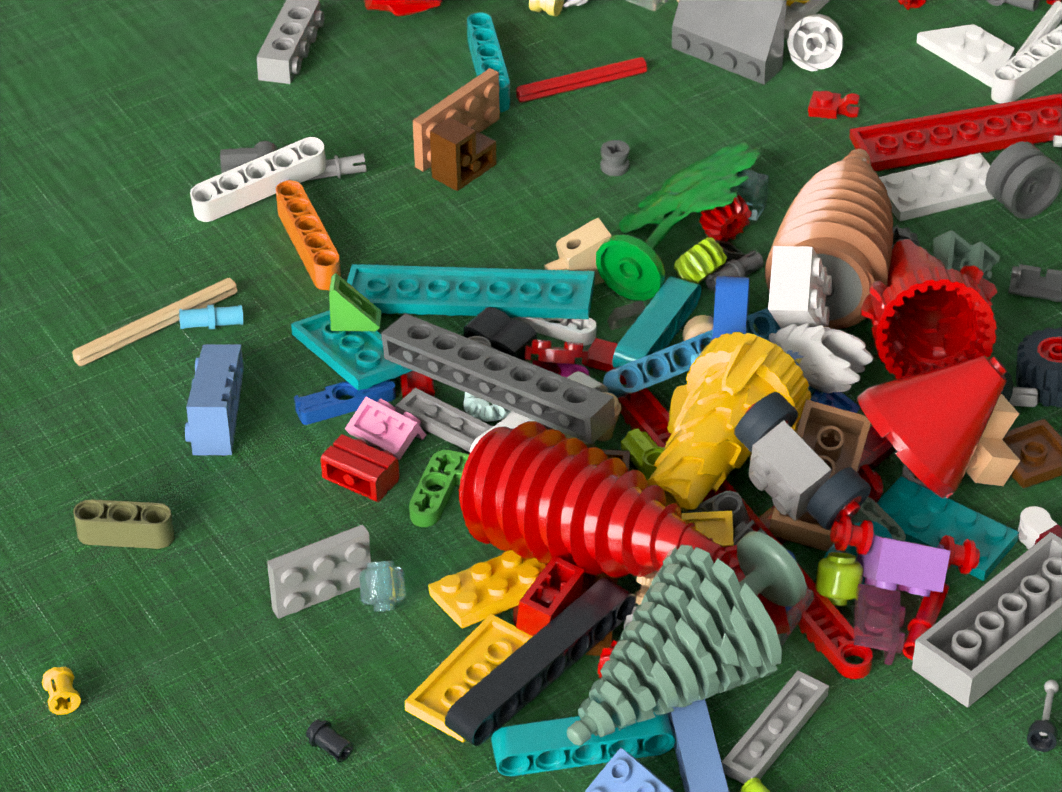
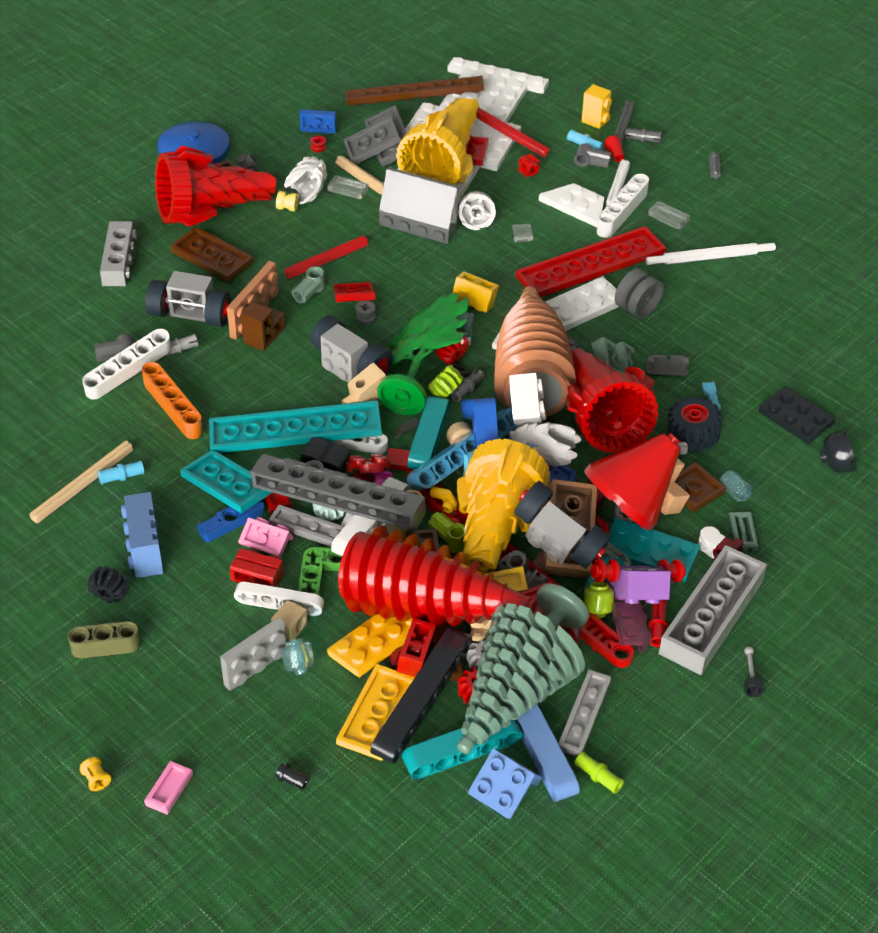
camera: 15 degrees left, 5 degrees up
(148, 453) = (107, 584): none -> black gear
(156, 726) = (168, 787): none -> bright pink tile
(350, 308) = (221, 454): slope -> none
(364, 105) = (188, 298): none -> brick
(389, 537) = (294, 619): none -> tan brick
(414, 522) = (256, 595): none -> white beam
(420, 56) = (211, 254): none -> reddish brown plate
(487, 53) = (258, 246): teal beam -> none
(551, 110) = (311, 284): none -> sand green piece
(567, 200) = (346, 352): none -> light grey brick
(605, 128) = (354, 291): none -> red plate
(658, 417) = (446, 495): none -> yellow arm
(781, 148) = (477, 290): none -> yellow brick
(829, 105) = (496, 254): red plate -> none
(877, 82) = (522, 233): none -> clear tile

